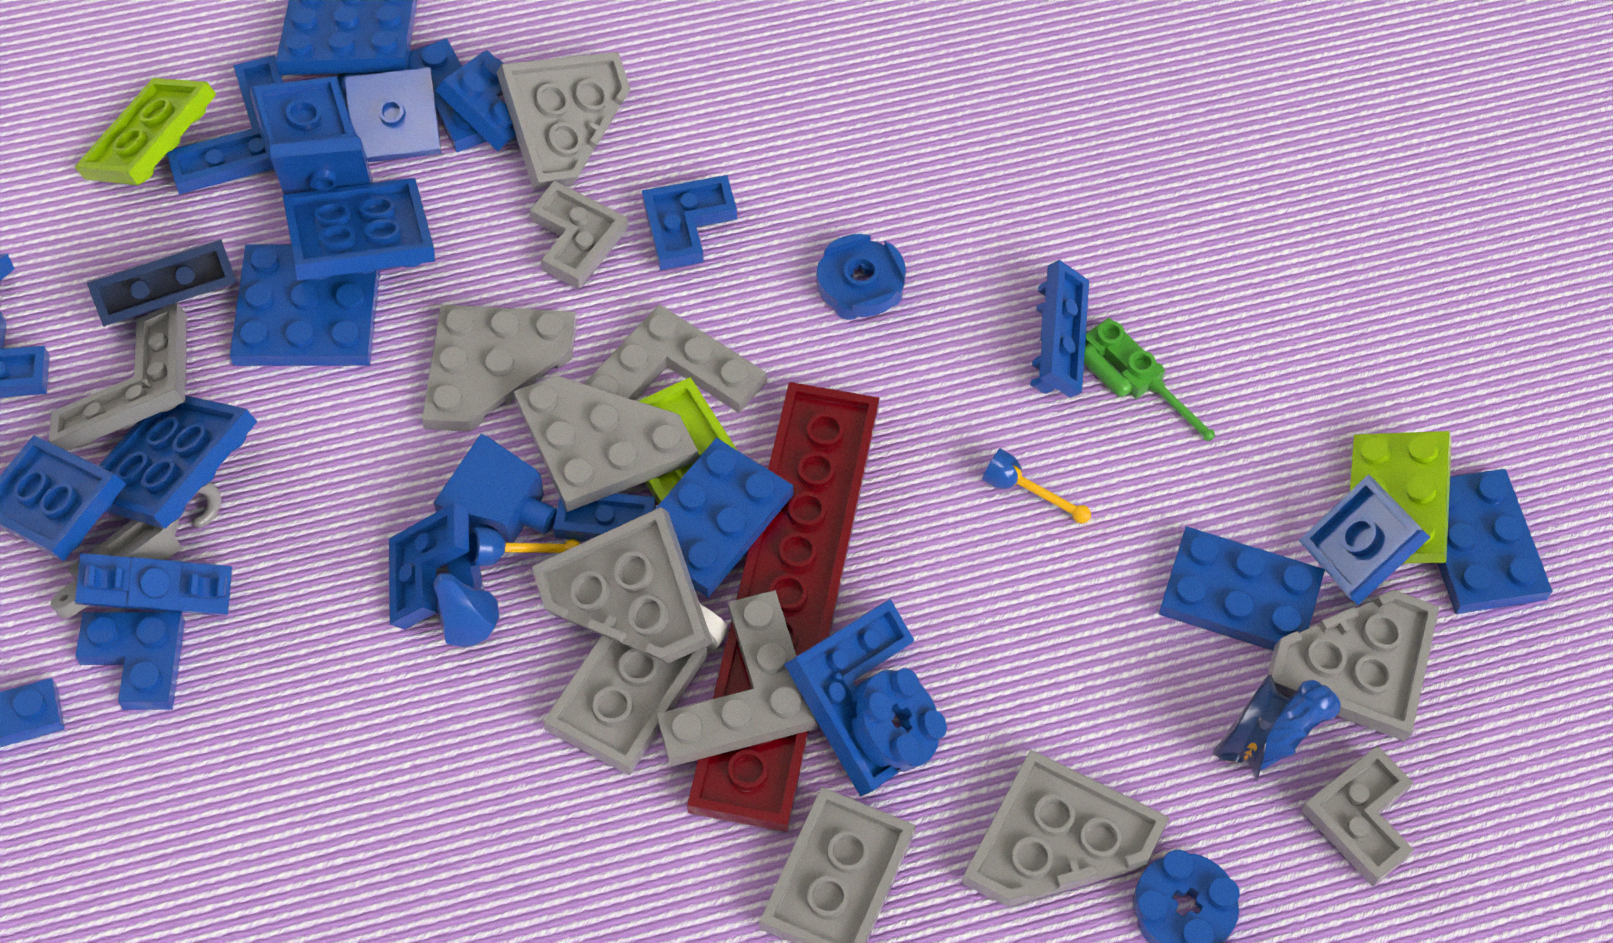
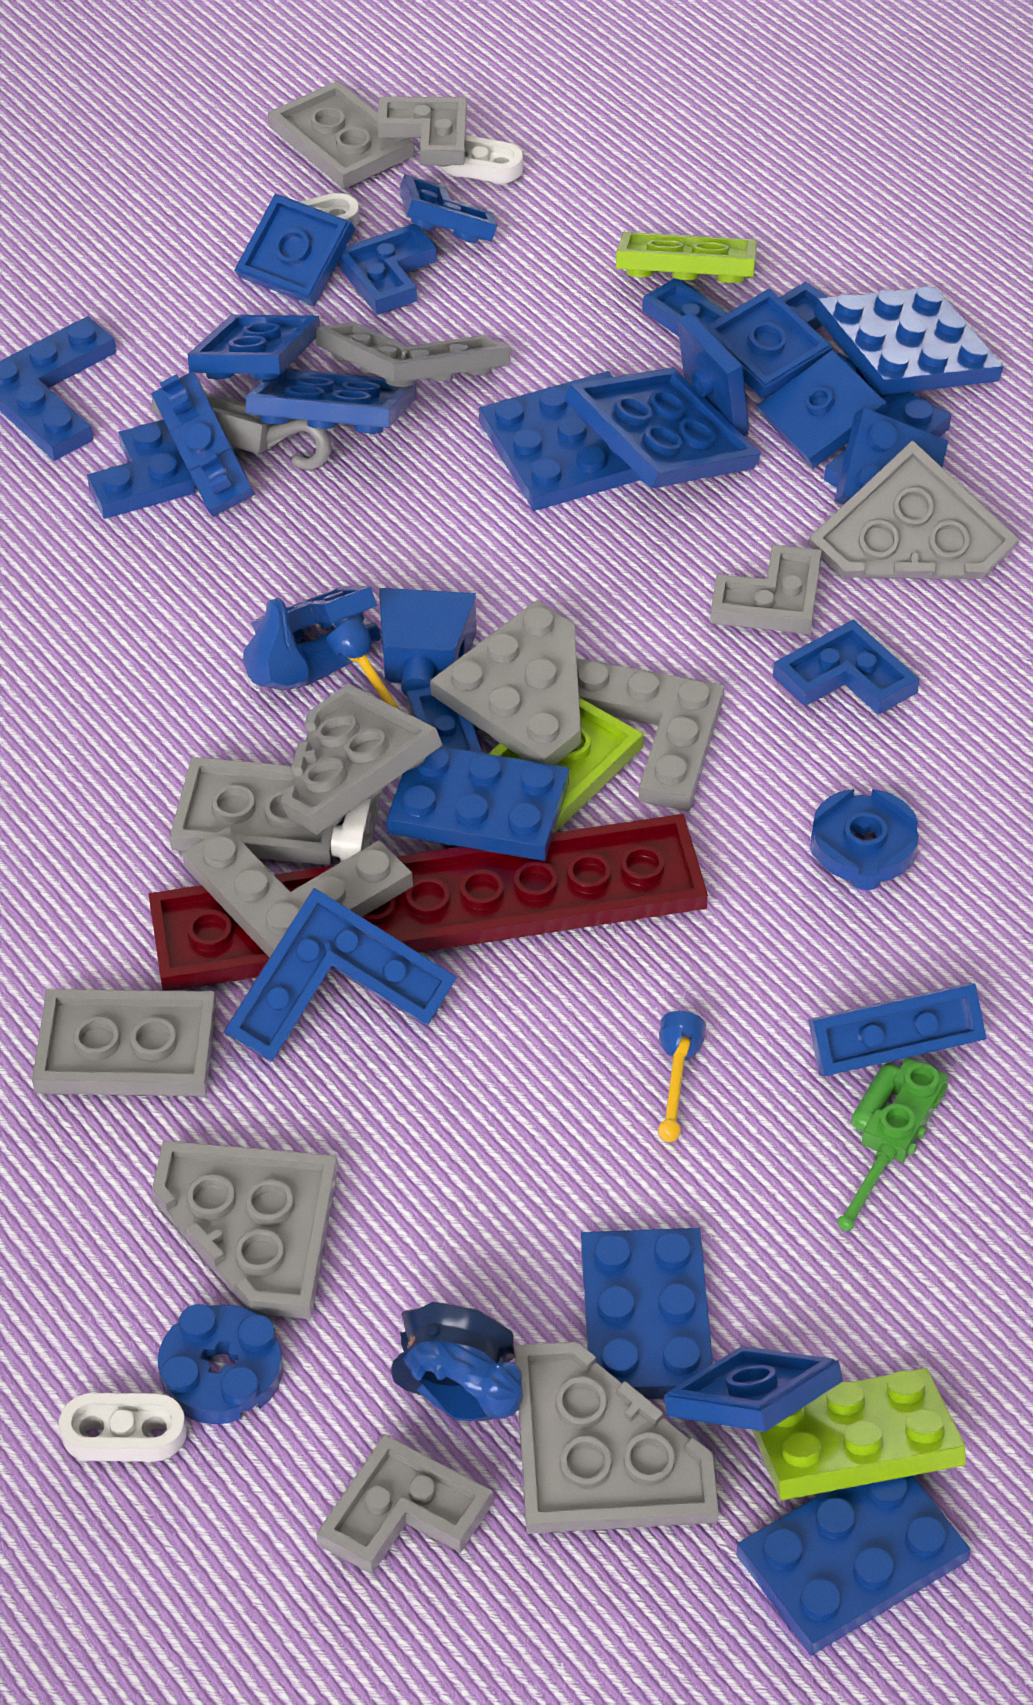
camera: 70 degrees right, 10 degrees down
(161, 282) = (523, 326): dark blue brick -> none
(487, 356) = (589, 581): light grey plate -> none
(919, 720) = (345, 1015): blue plate -> none

